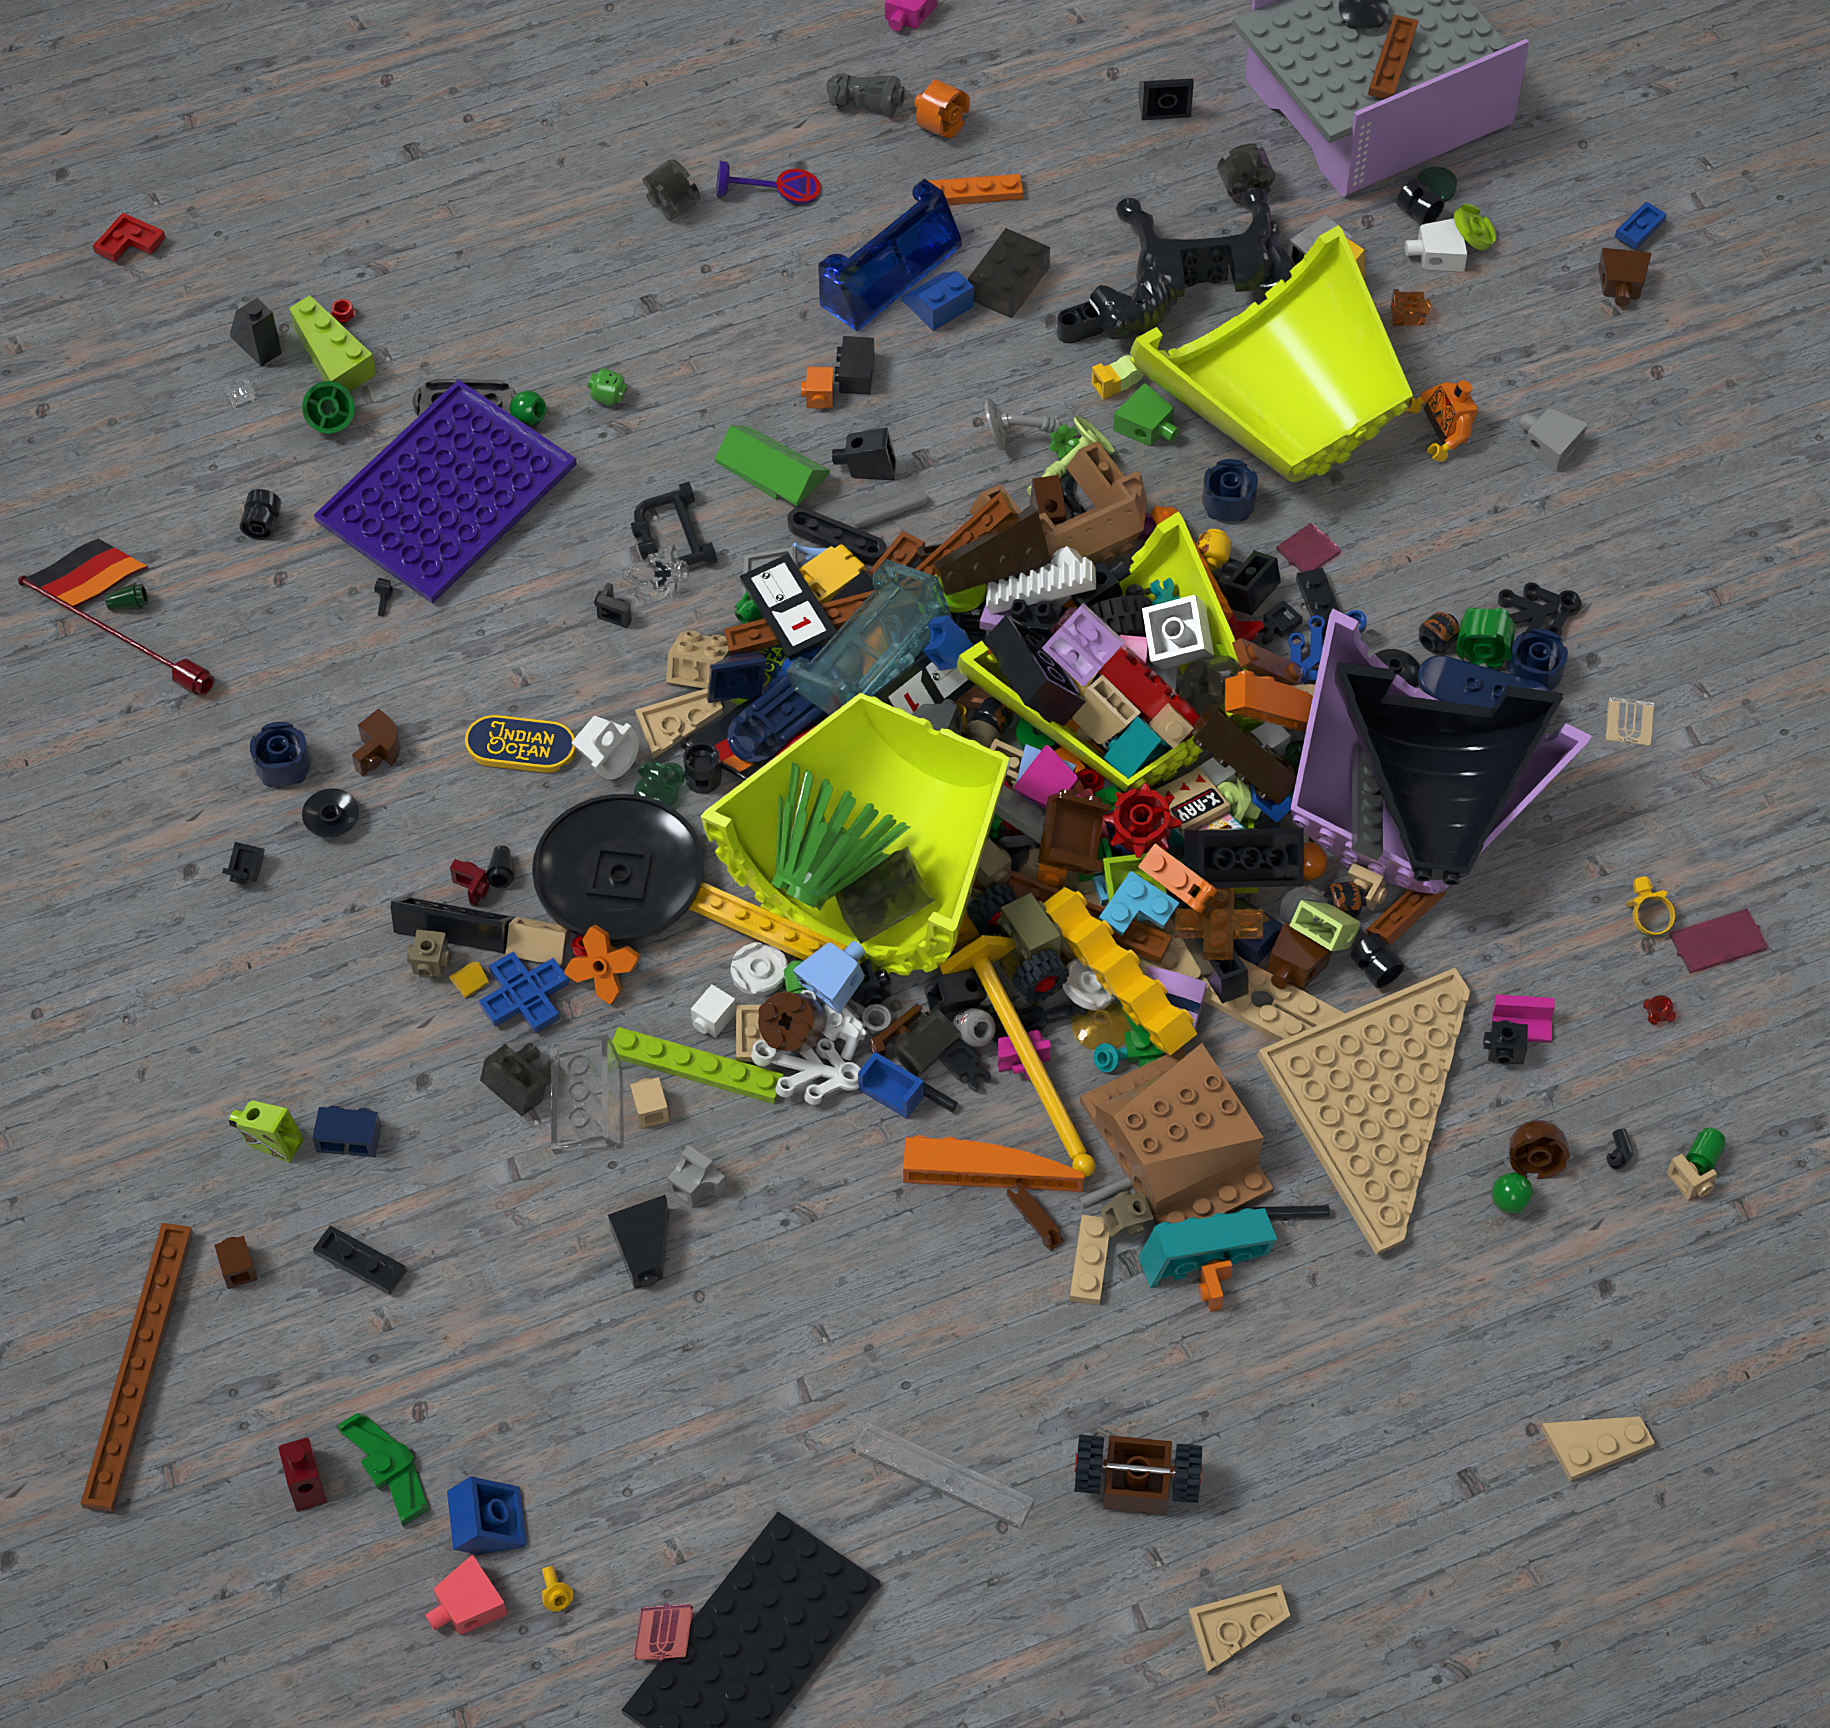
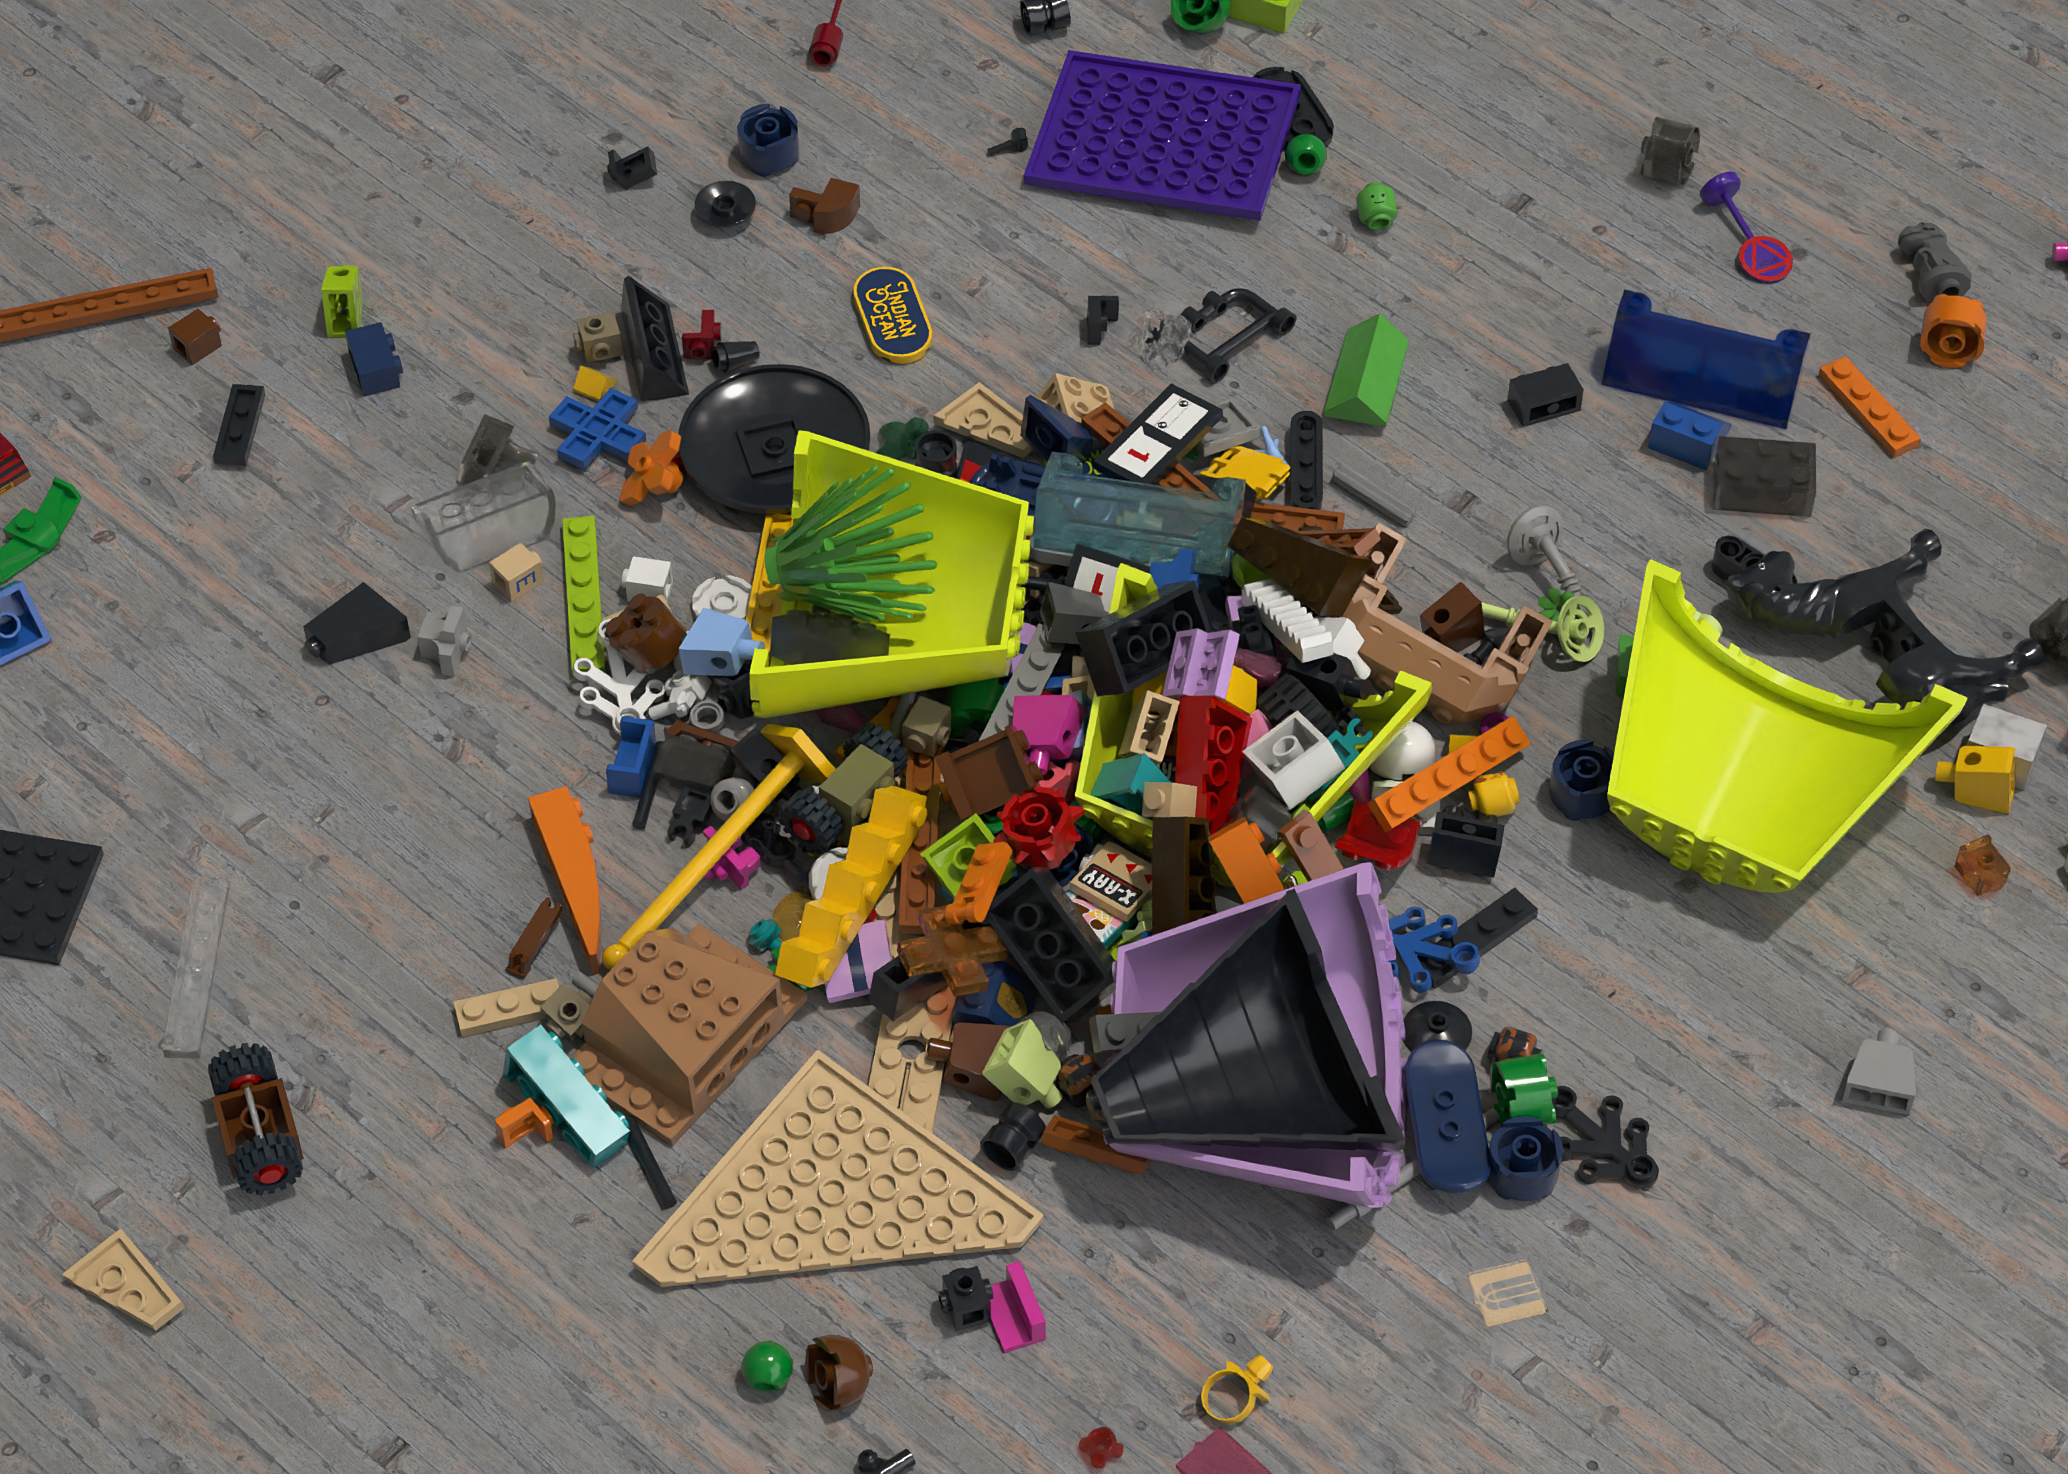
camera: 65 degrees right, 5 degrees down
(536, 940) = (661, 410): tan panel -> none
(608, 747) = (912, 375): white container -> none
(818, 387) = (1492, 374): orange brick -> none
(868, 455) = (1421, 439): black torso -> none
(1137, 897) = (941, 861): medium azure plate -> none
(1279, 620) = (1434, 894): black plate -> none
(1308, 549) = (1562, 891): clear pink piece -> none
(1450, 413) = (1836, 957): orange torso -> none

